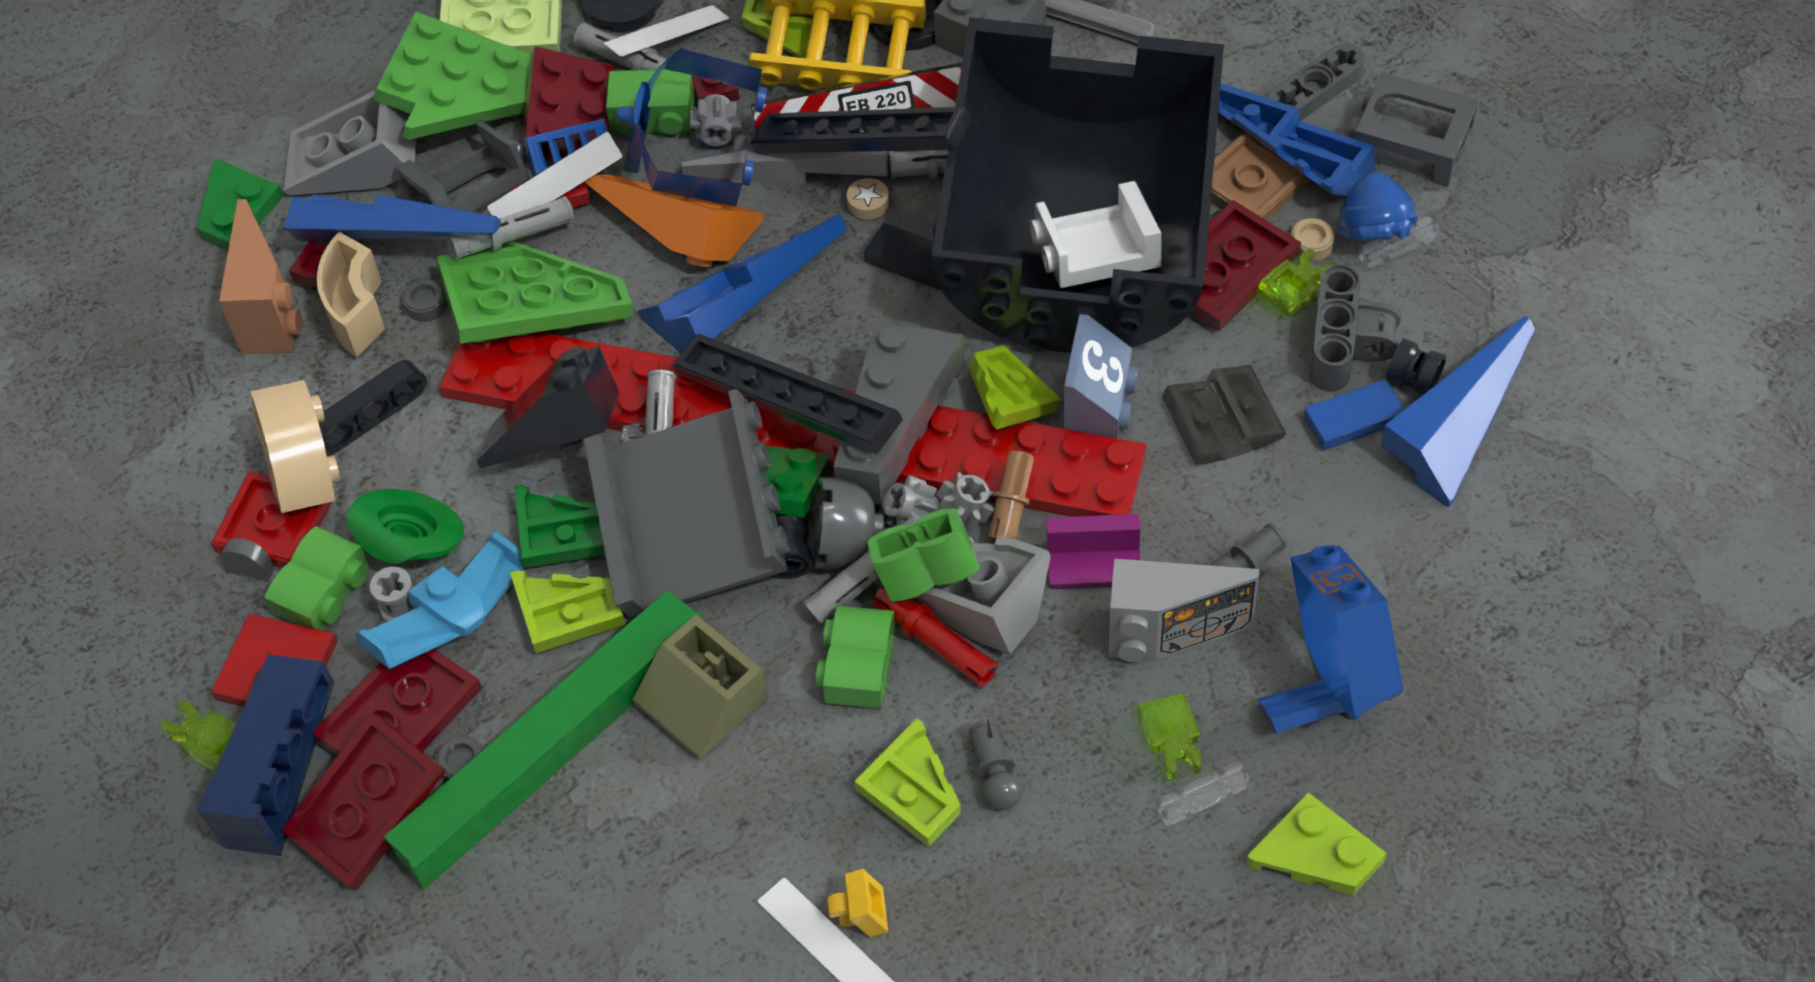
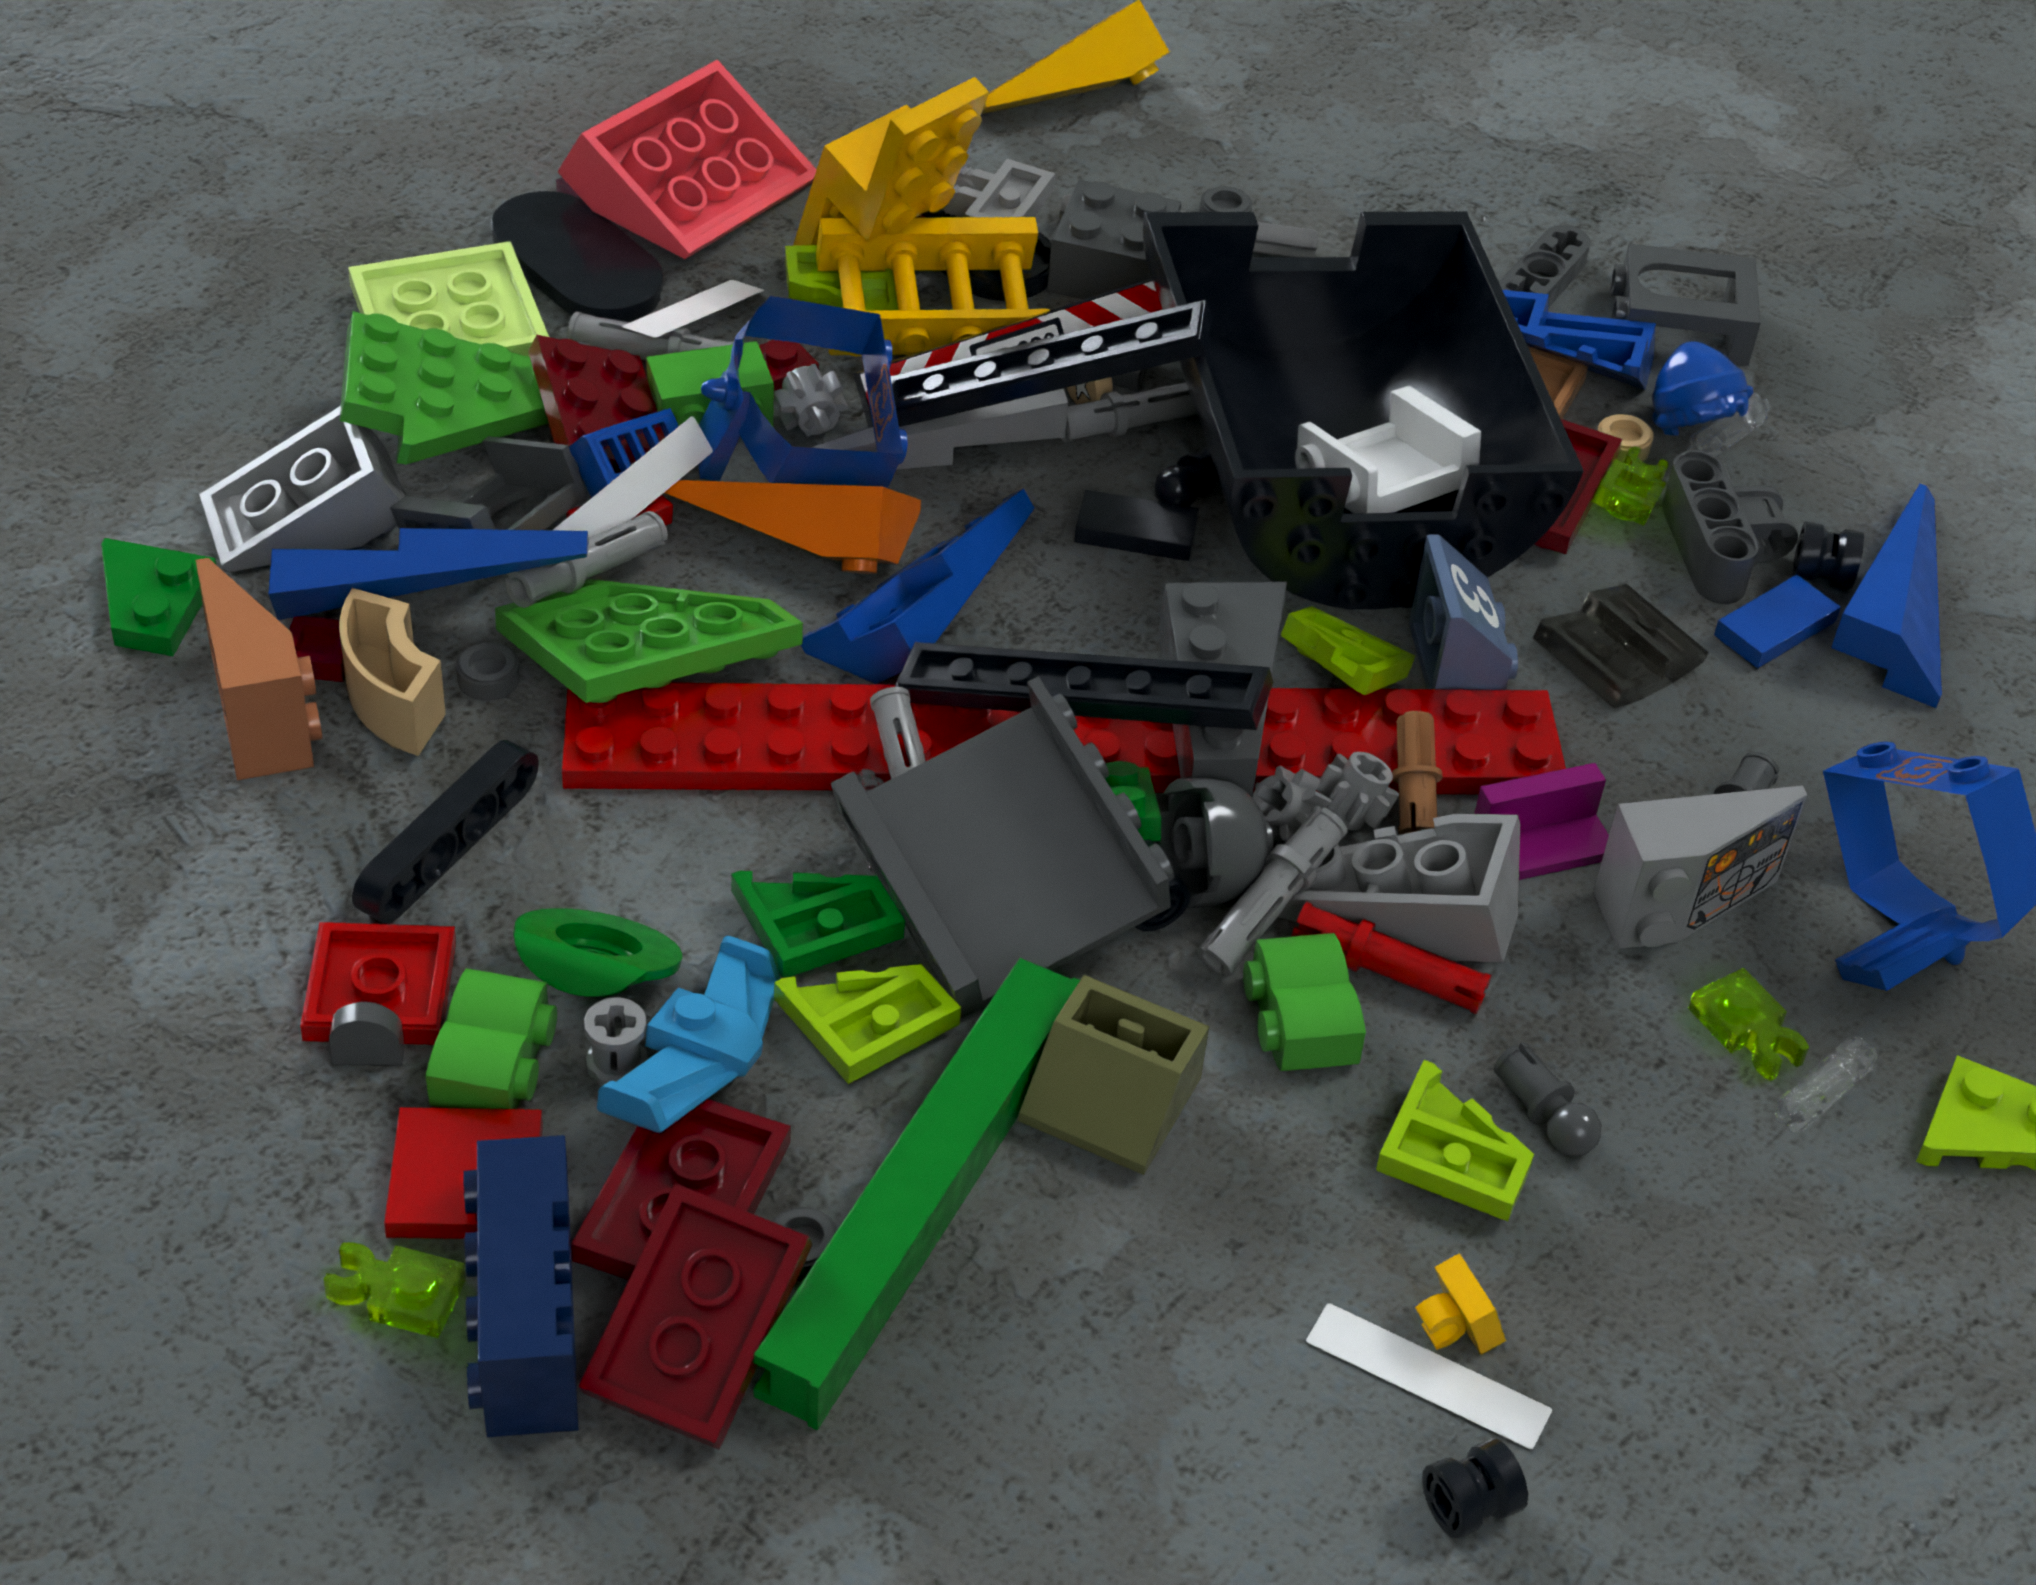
camera: 25 degrees left, 10 degrees down
(294, 445) = (399, 865): tan brick -> none
(560, 407) = (761, 756): black slope -> none
(867, 198) = (1048, 468): tan tile -> none
(923, 554) = (1363, 845): bright green brick -> none

